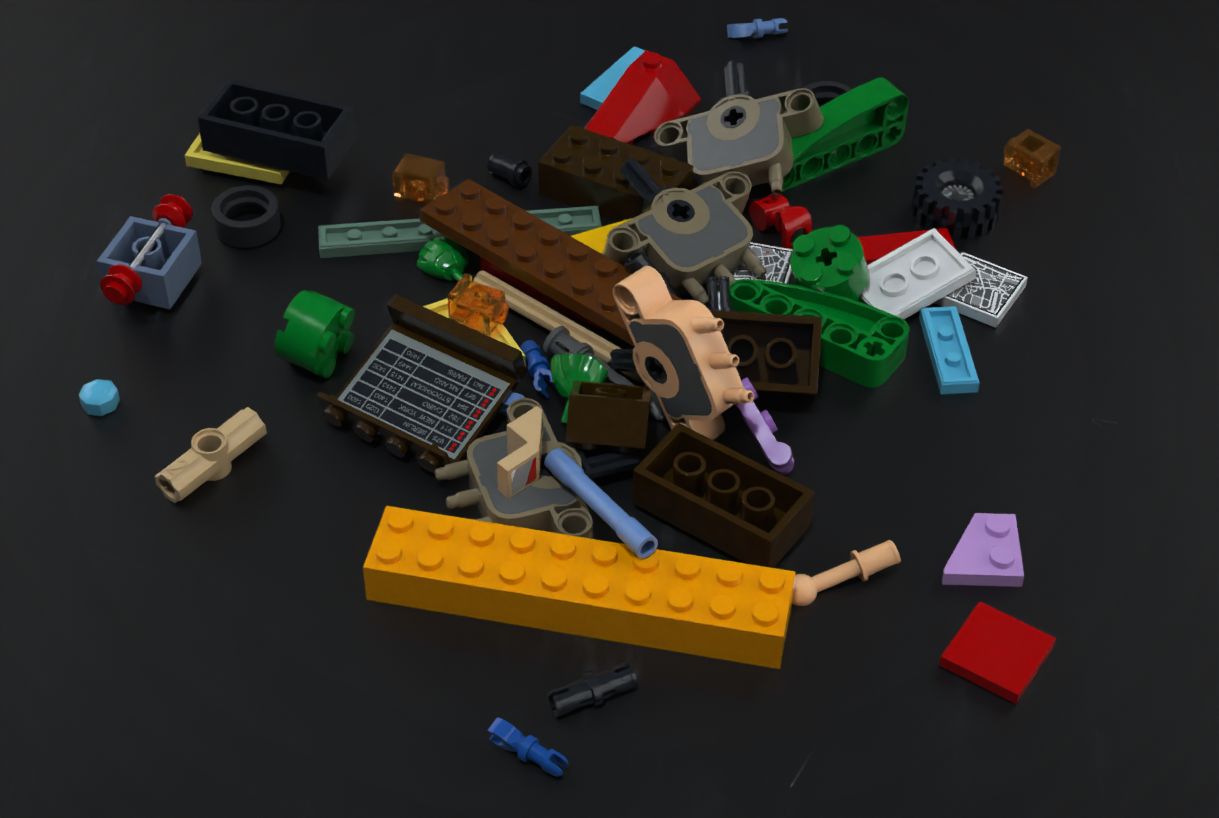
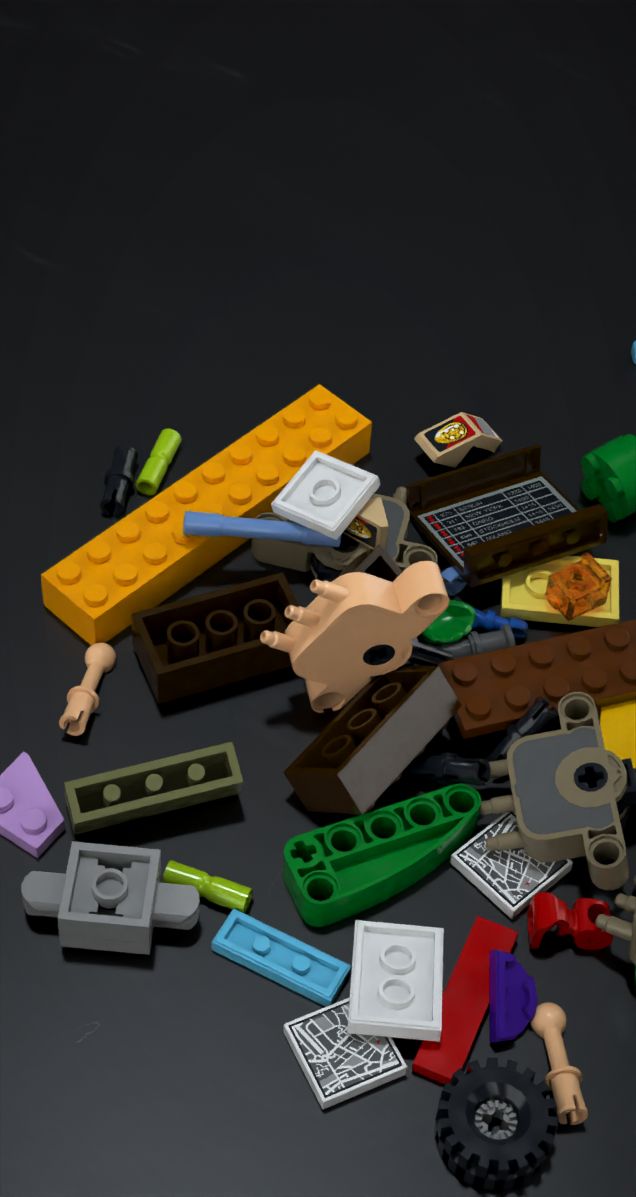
camera: 120 degrees right, 5 degrees up
(210, 455) = (527, 379): tan piece -> none
(341, 464) = (454, 437): none -> slope
(528, 748) = (101, 424): blue piece -> none
(535, 674) = (157, 463): none -> lime piece
(539, 455) = (325, 494): none -> white tile
(761, 427) = (282, 704): medium lavender plate -> none
(830, 262) = (446, 893): green brick -> none
(861, 226) = (511, 997): none -> dark purple plate
(895, 184) = (562, 1079): none -> light nougat pin
(905, 462) = (152, 787): none -> olive brick
(939, 408) = (213, 888): none -> lime piece
(1017, 437) = (110, 879): none -> light grey brick

